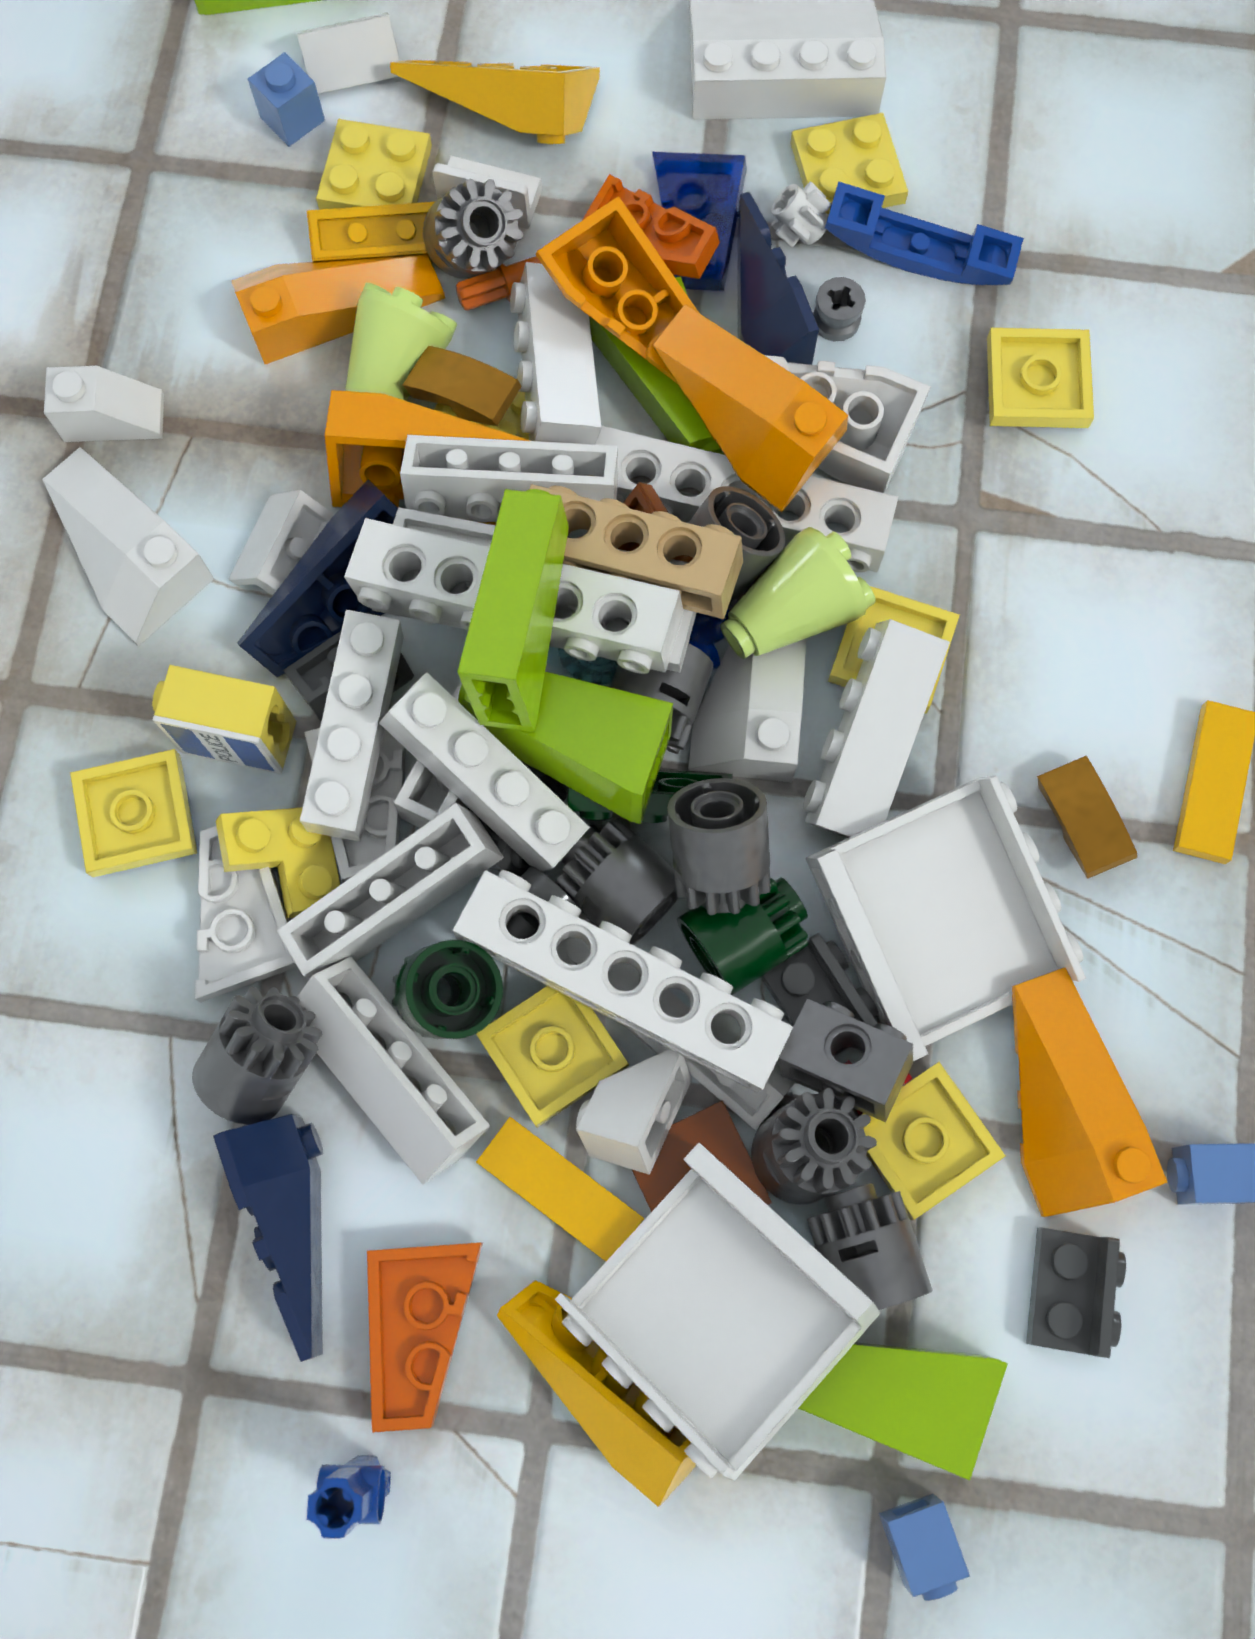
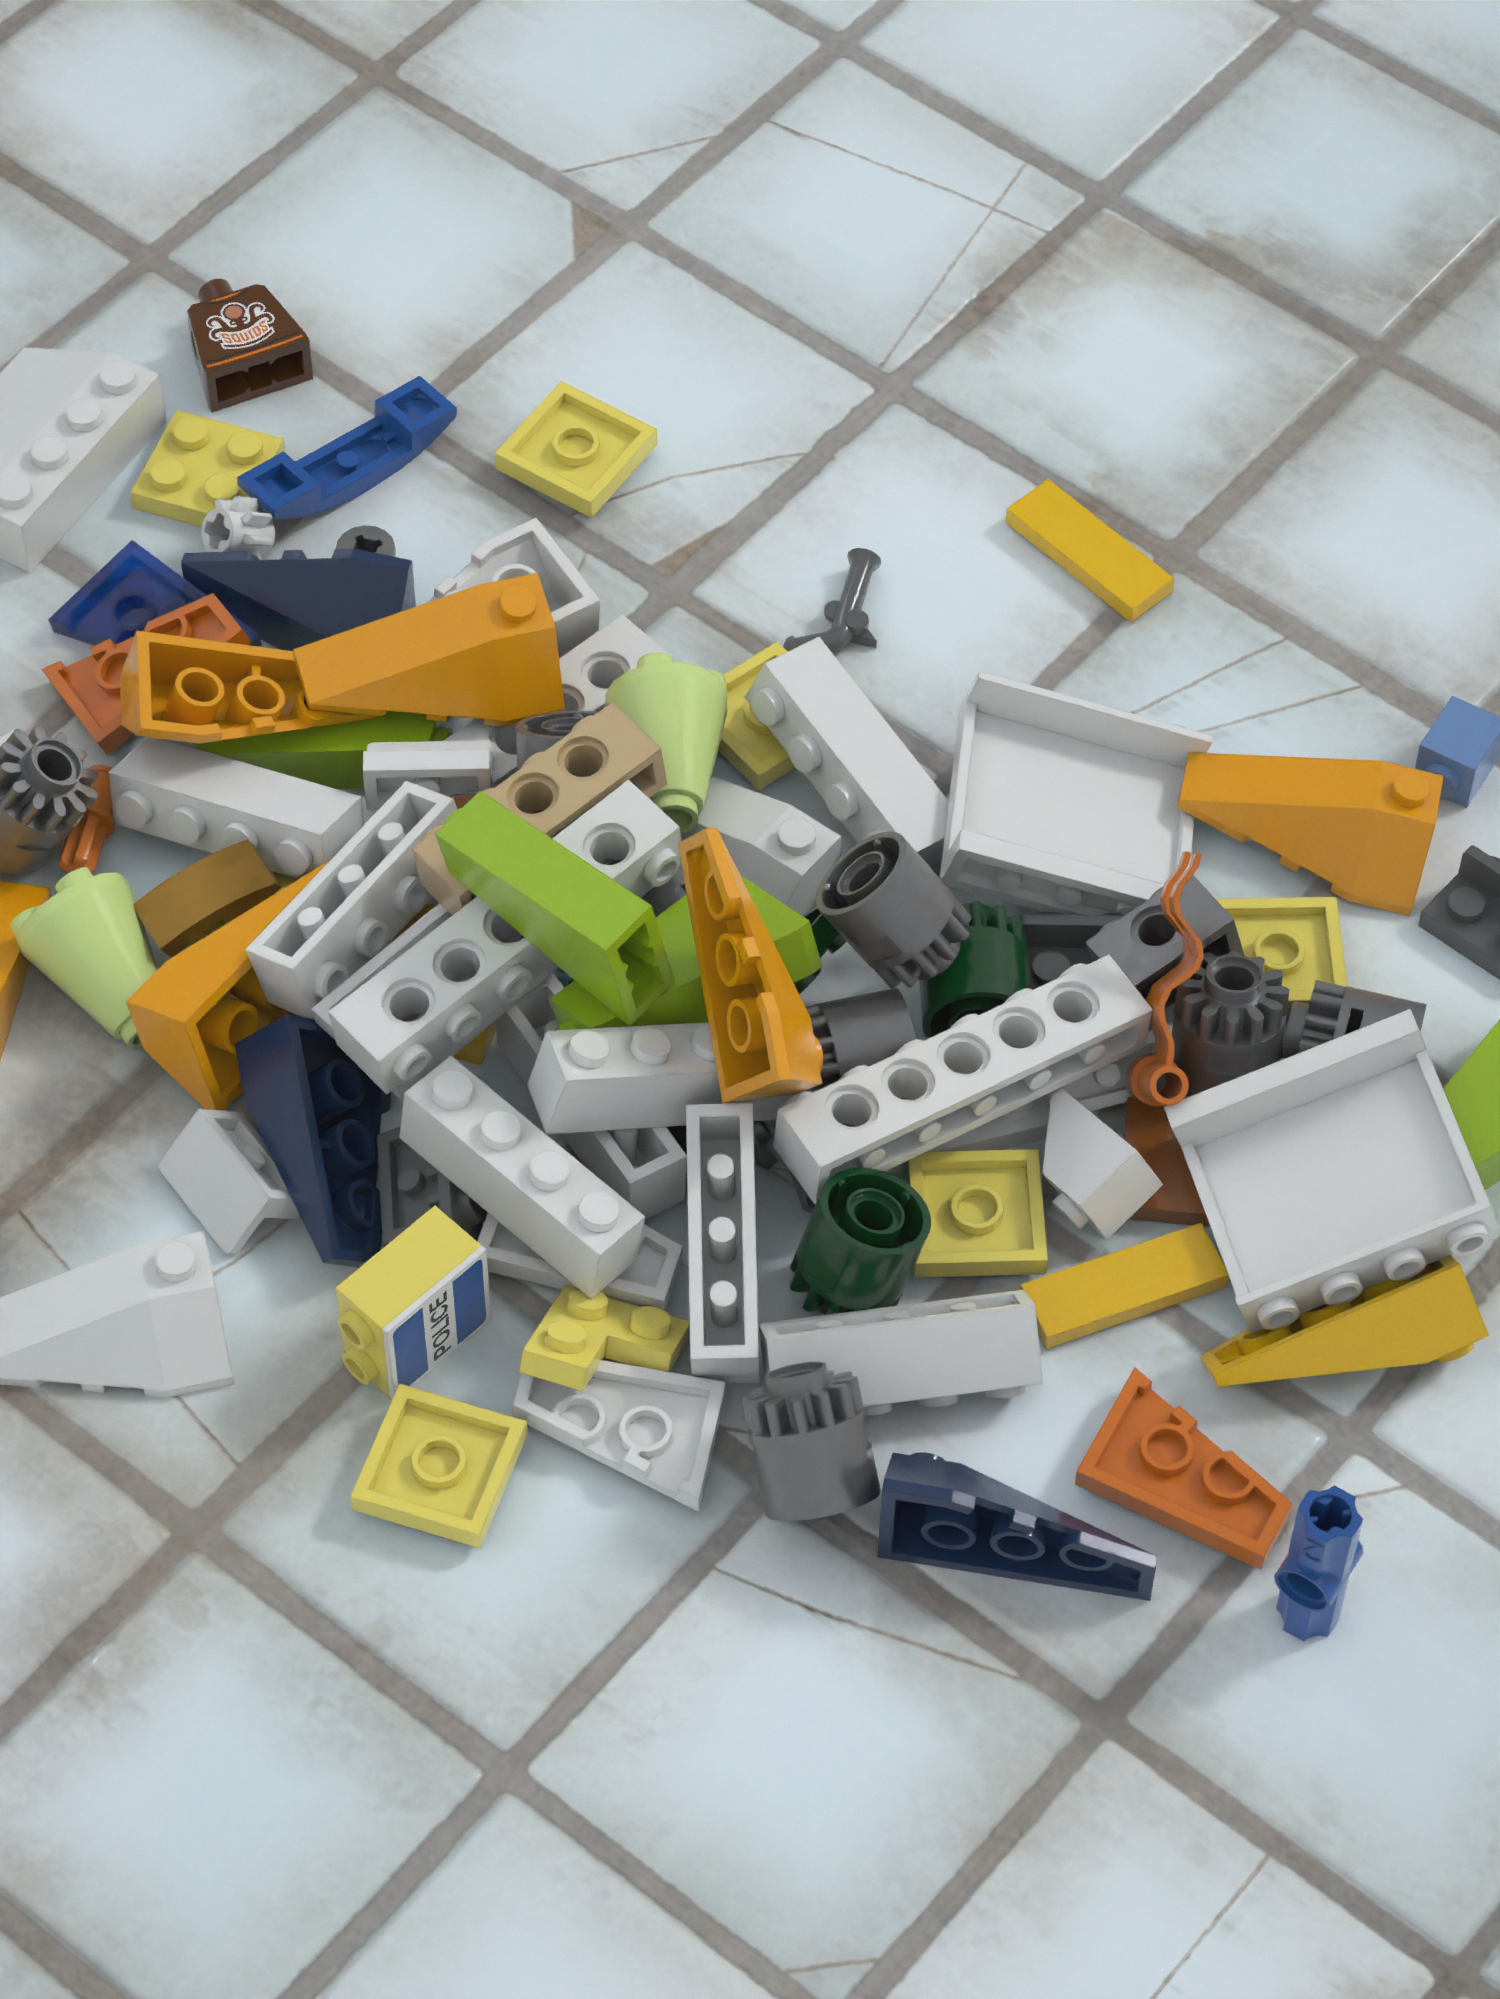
camera: 60 degrees left, 20 degrees down
(524, 821) = (752, 1006): none -> light orange wedge
(662, 455) = (435, 765): none -> white panel
(741, 1112) = (1147, 1068): none -> orange flag
(966, 114) = (245, 344): none -> reddish brown torso
(1026, 645) = (847, 619): none -> dark grey piece
(1087, 817) = (1057, 656): pearl gold slope -> none

